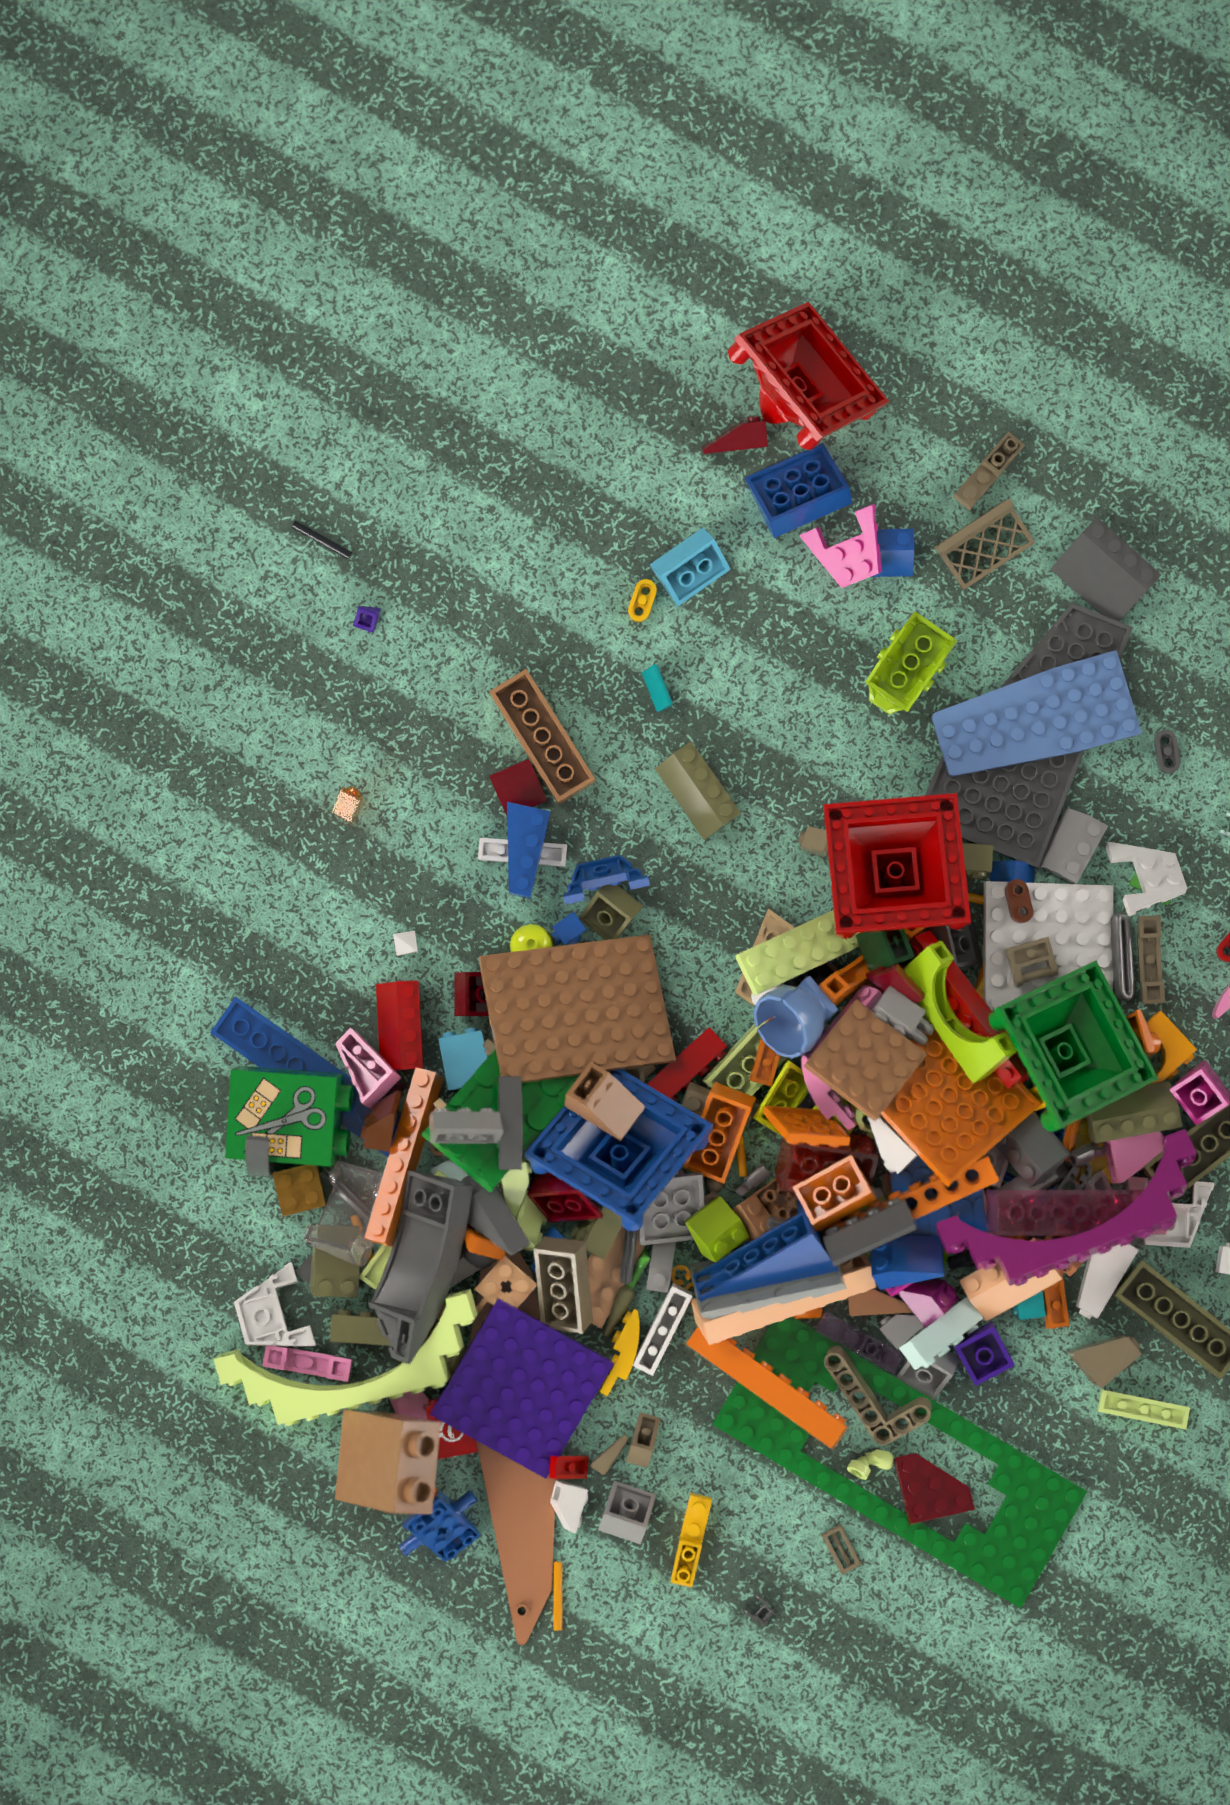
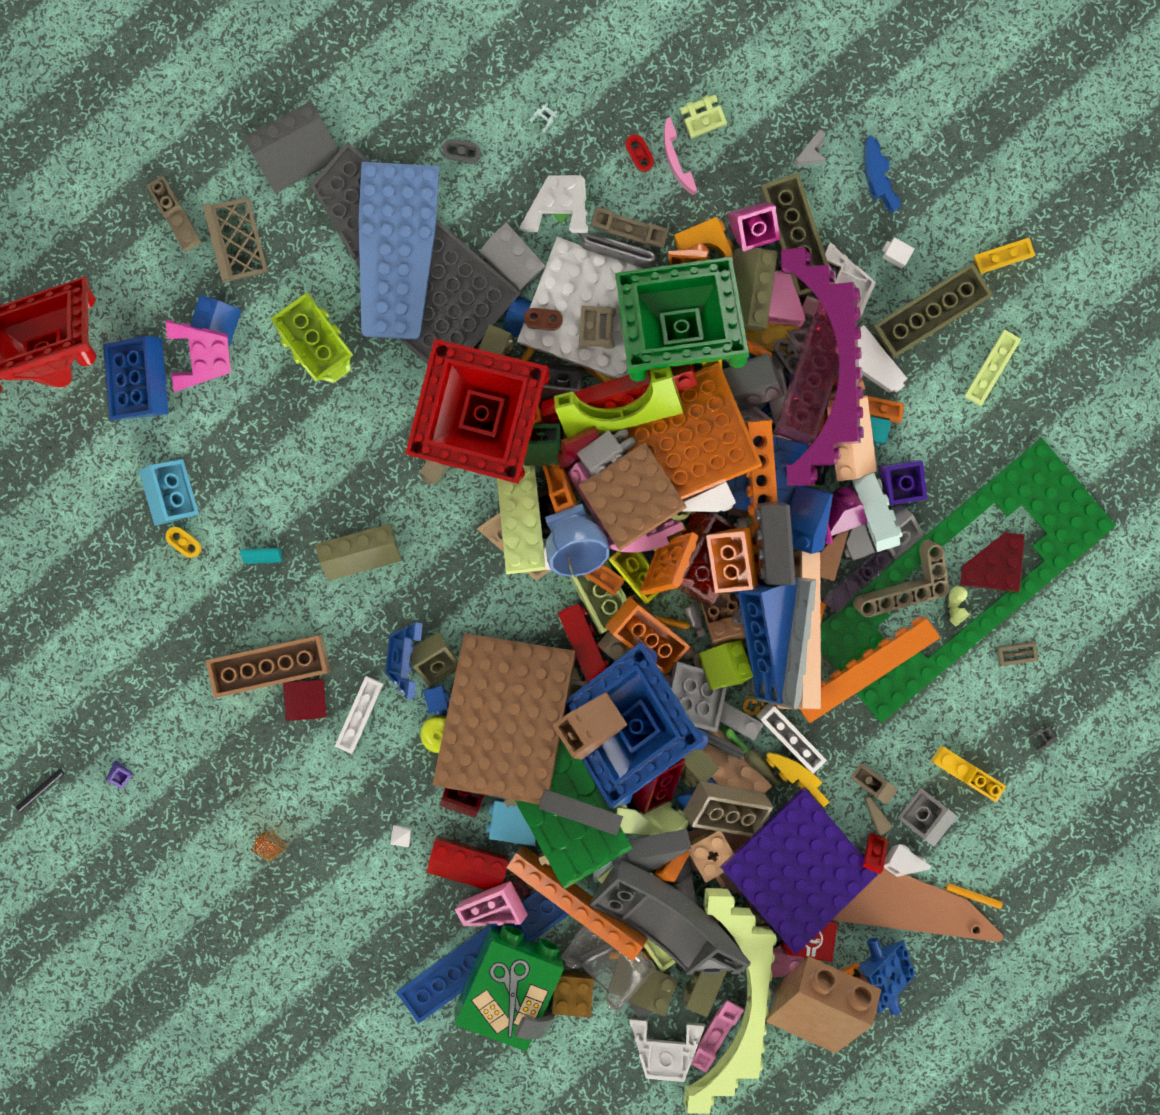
camera: 70 degrees left, 5 degrees up
(382, 1123) = (543, 912): reddish brown slope -> none
(465, 1126) = (570, 852): light grey slope -> none
(526, 839) = (353, 712): blue wedge -> none
(742, 436) = (72, 407): dark red slope -> none
(1086, 1153) = (770, 339): flat silver bar -> none
(1105, 1358) = (942, 383): dark tan slope -> none

